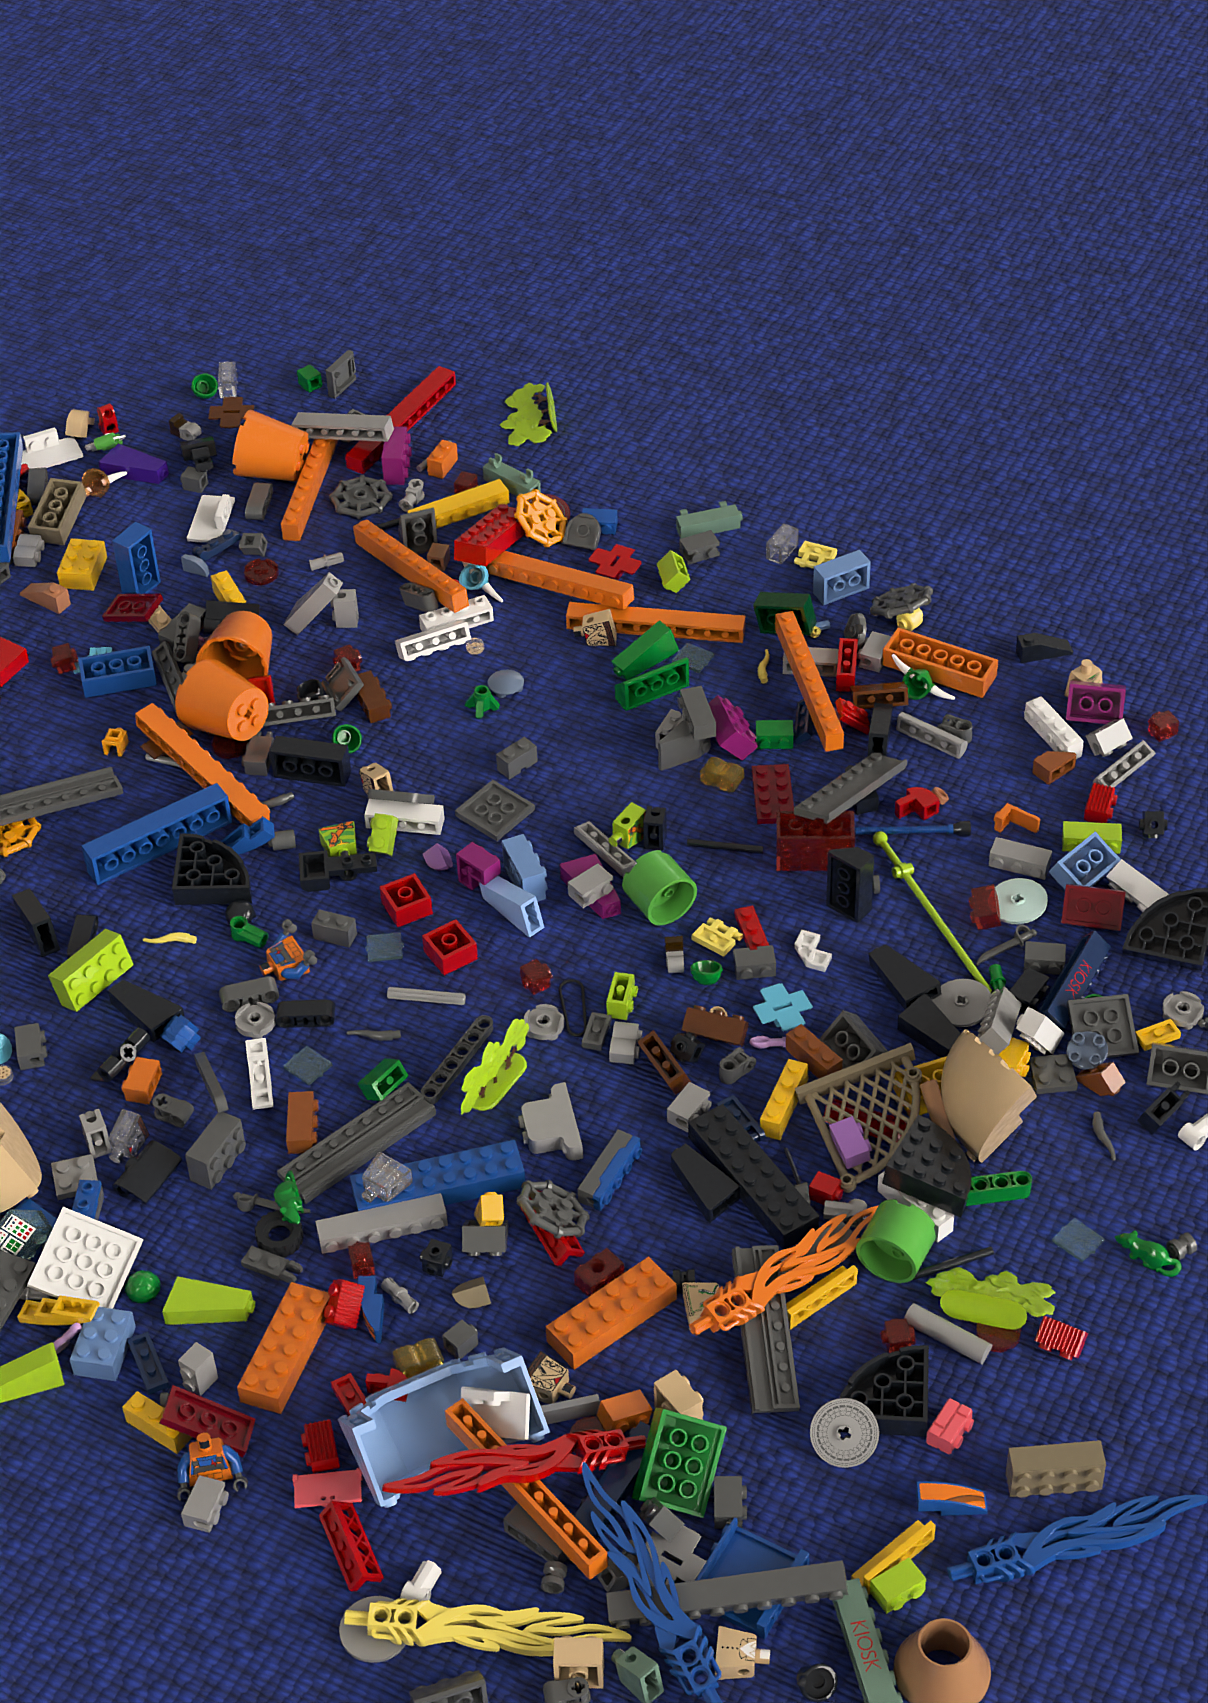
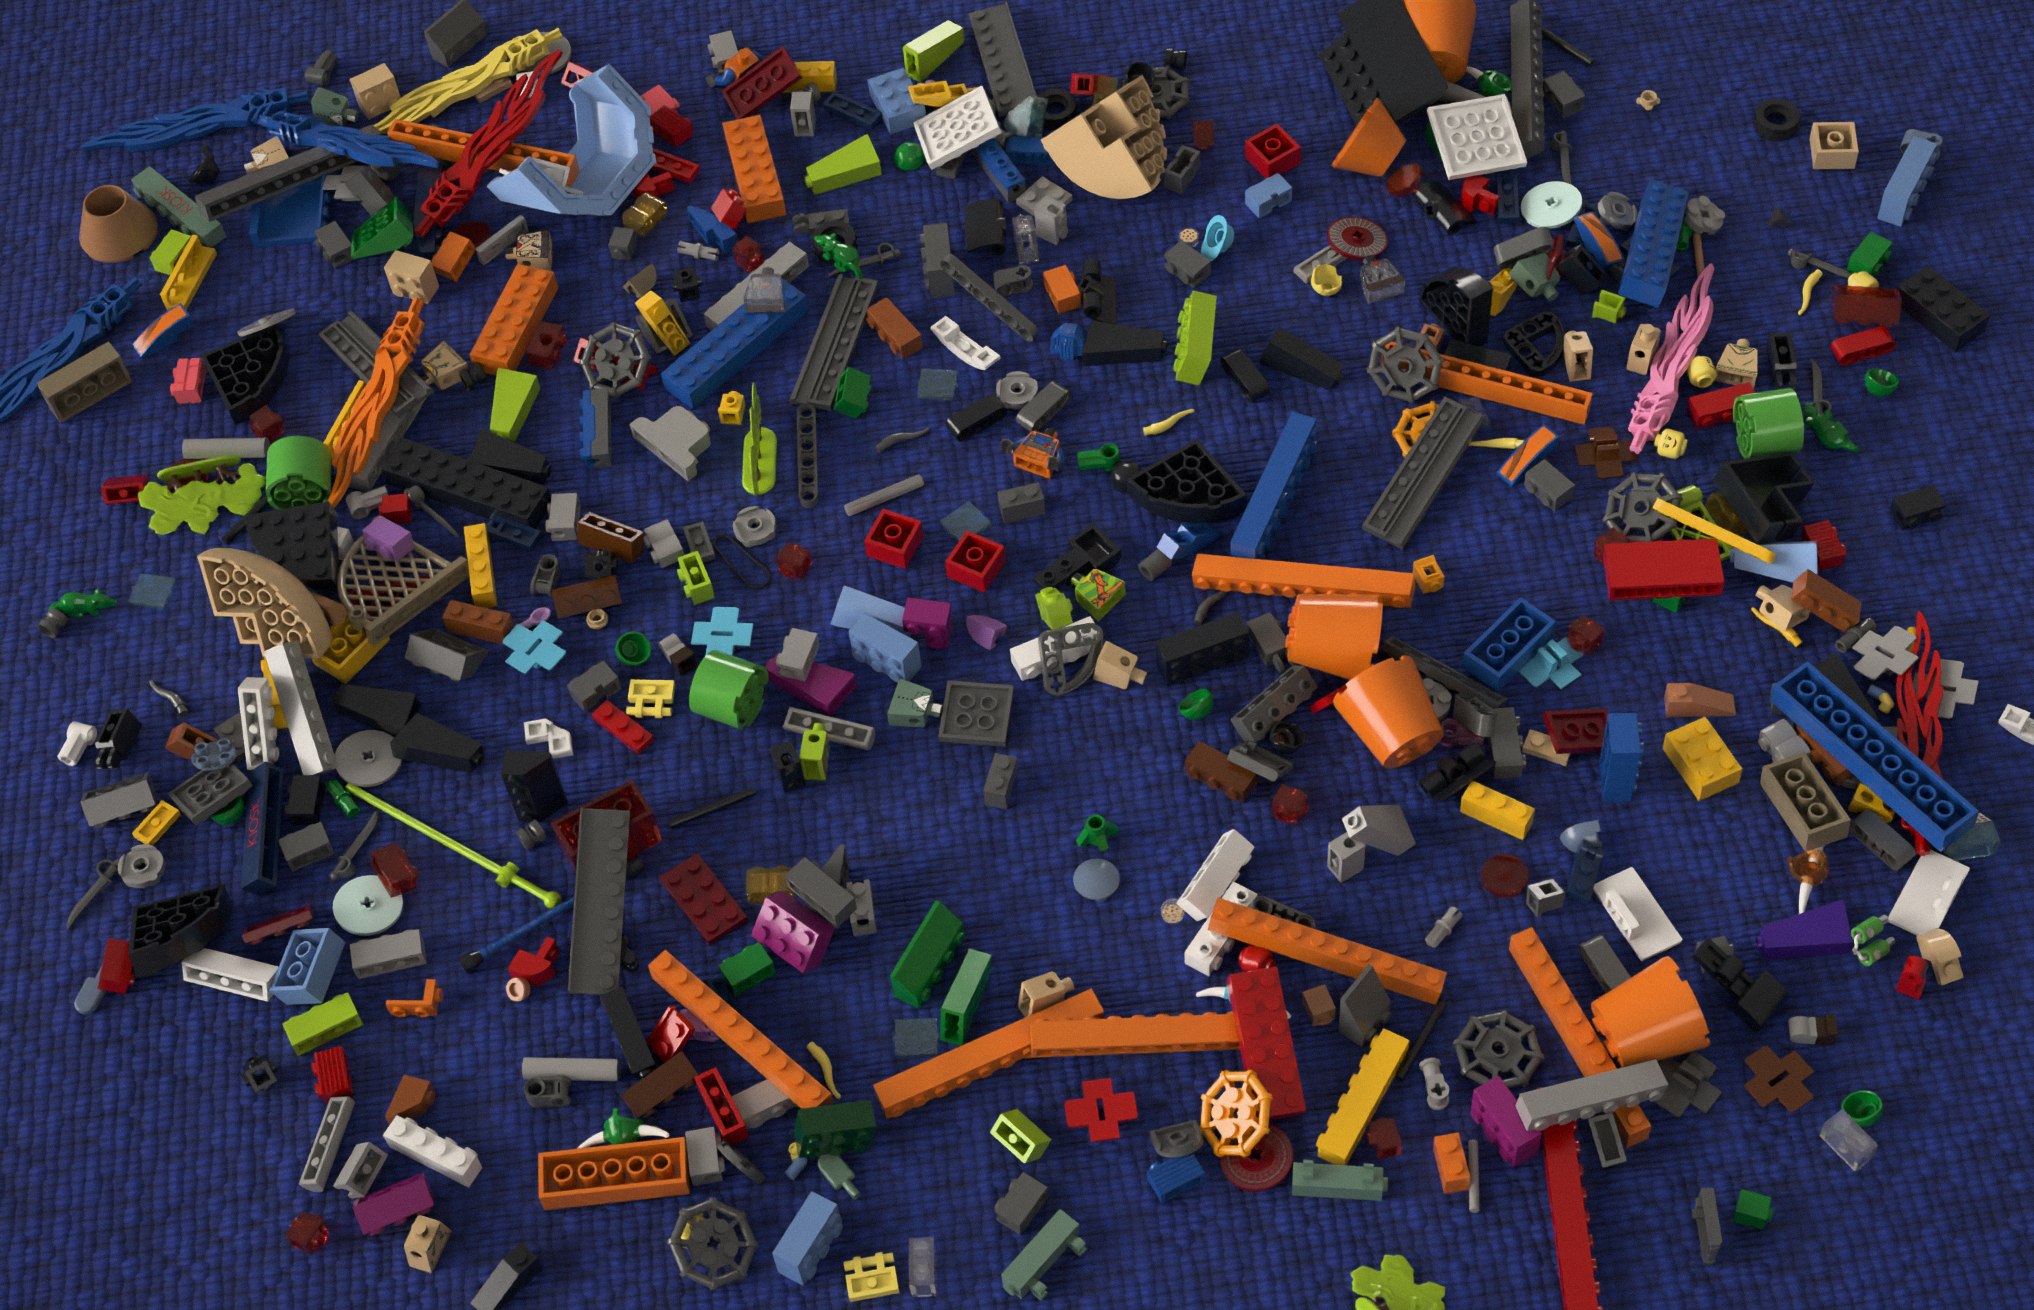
camera: 150 degrees right, 10 degrees up
(486, 1126) = (732, 404): none -> yellow brick
(537, 830) = (912, 705): none -> sand green torso
(637, 944) = (725, 630): none -> medium azure piece
(667, 1231) = (512, 402): none -> lime slope

